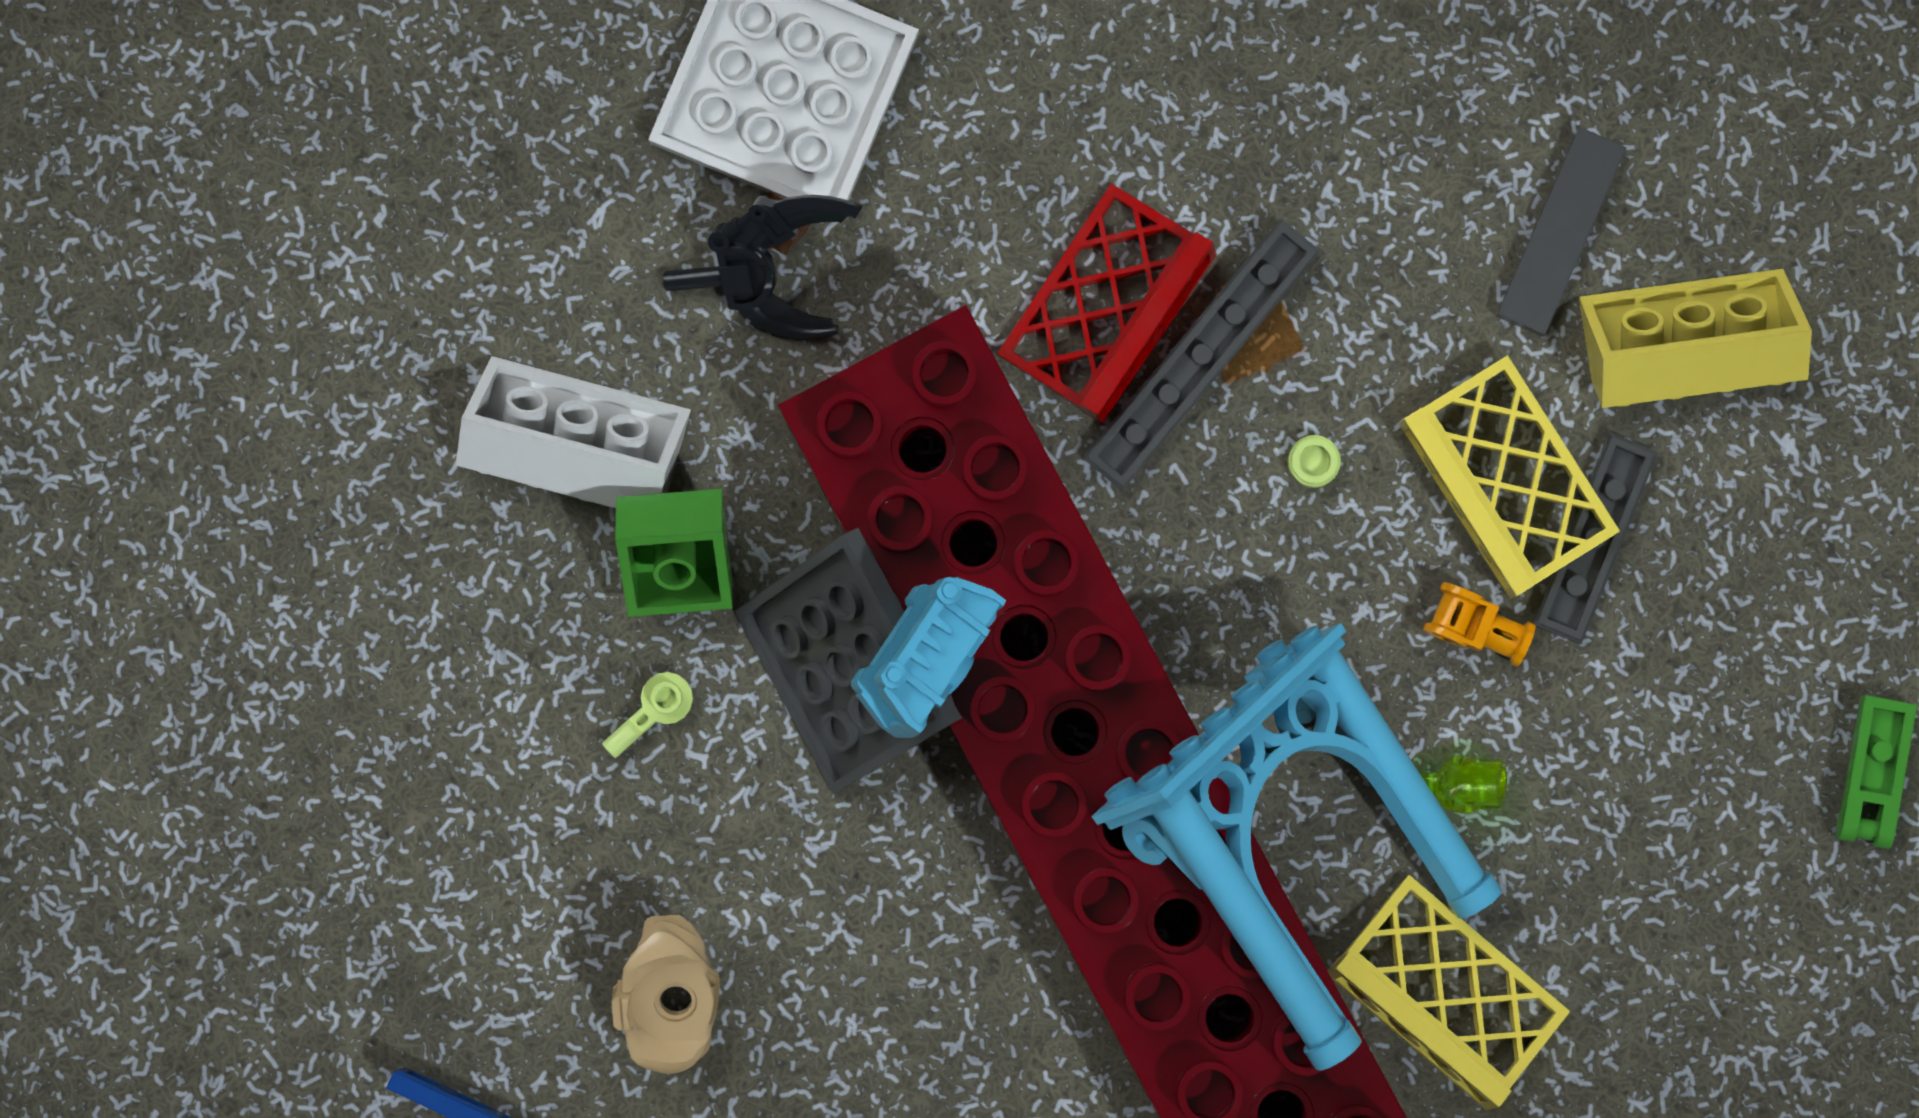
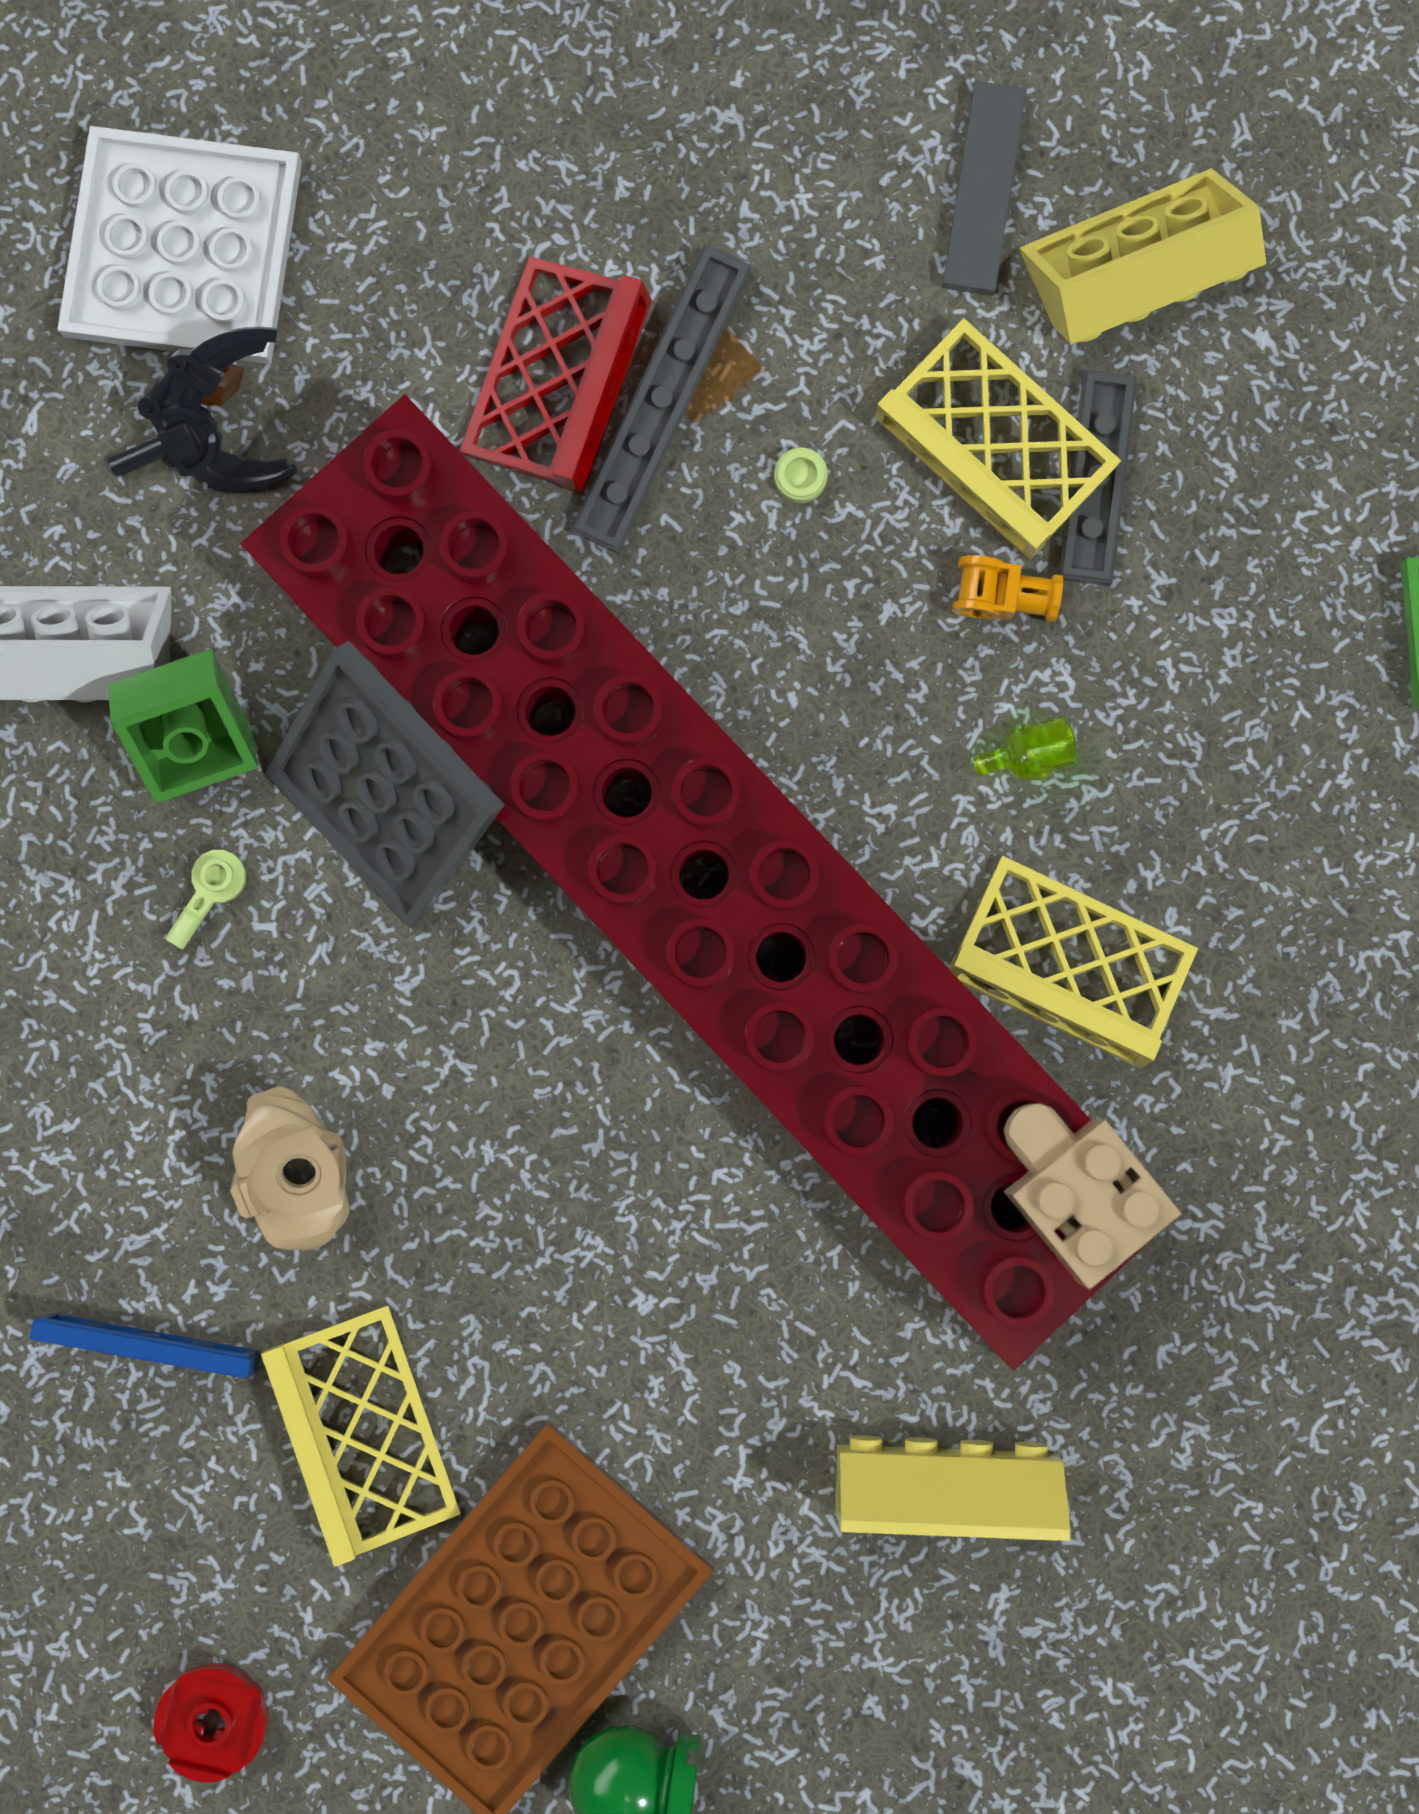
camera: 10 degrees left, 0 degrees up
(926, 653) = (447, 742): medium azure piece -> none
(1173, 816) = (748, 847): medium azure arch -> none

